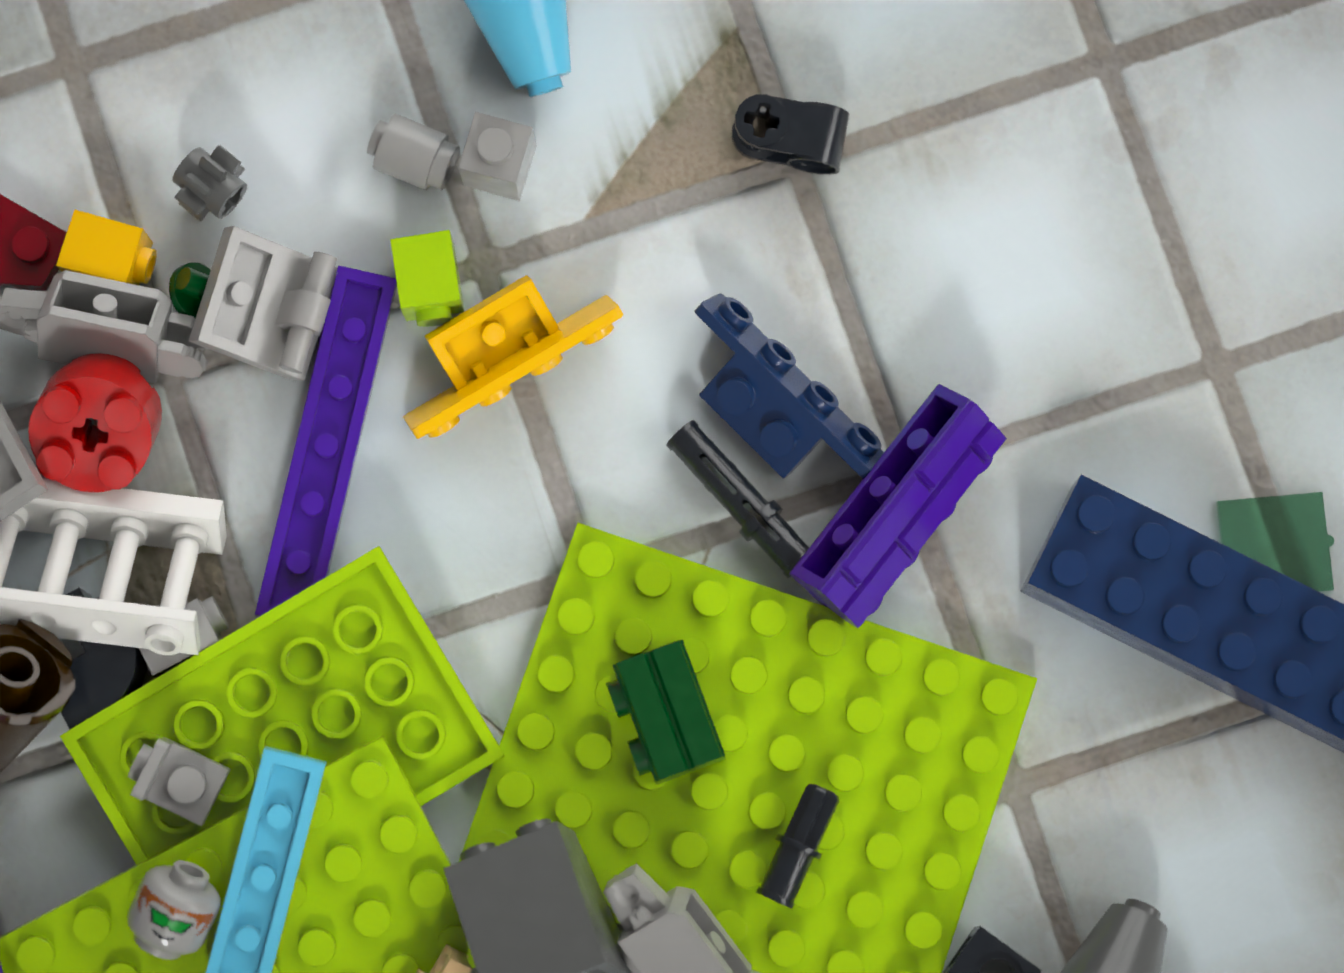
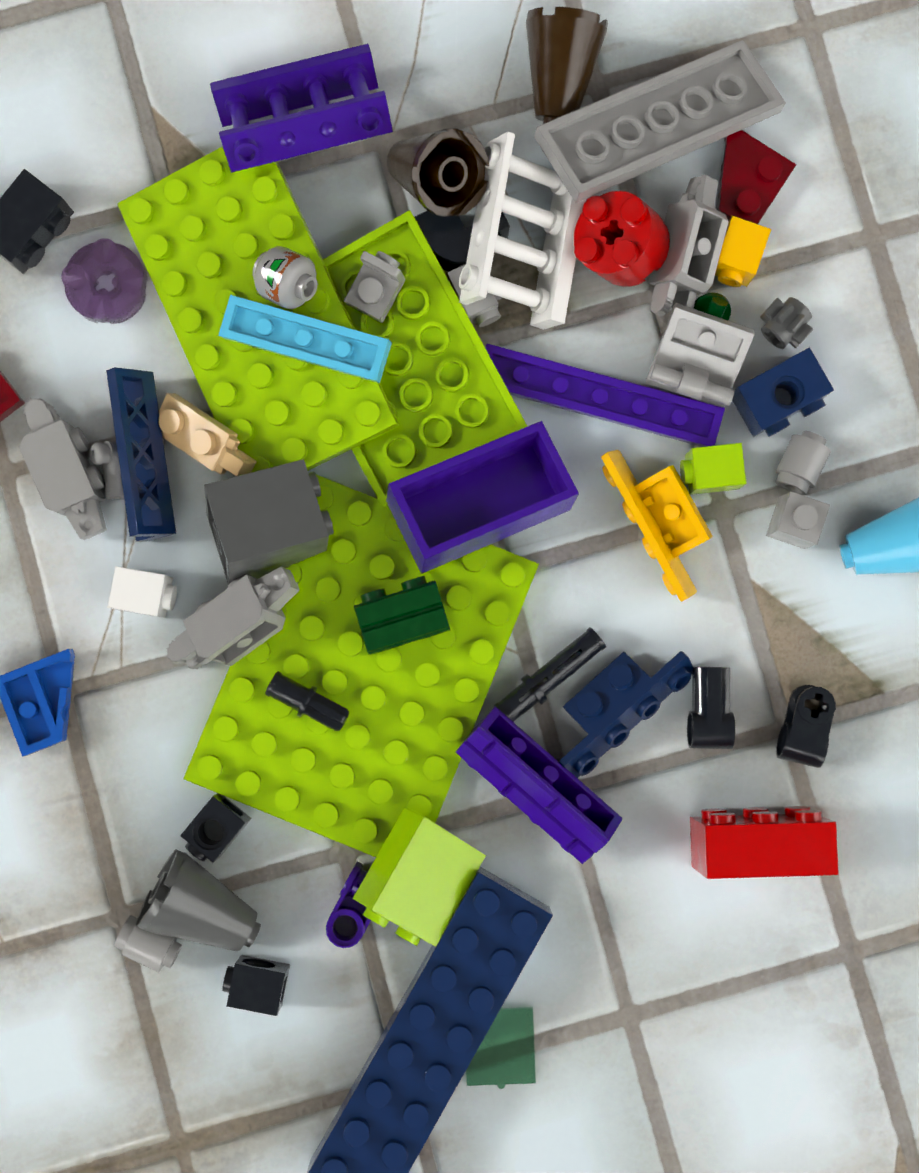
camera: 85 degrees right, 5 degrees up
(289, 159) = (799, 376): none -> dark blue brick
(486, 607) = (481, 496): none -> dark purple piece
(791, 267) = (710, 721): none -> black piece
(959, 187) = (763, 843): none -> red brick
(1042, 668) = (418, 879): none -> lime brick
(1085, 758) = (348, 906): none -> dark purple piece
(1213, 899) = (256, 985): none -> black brick

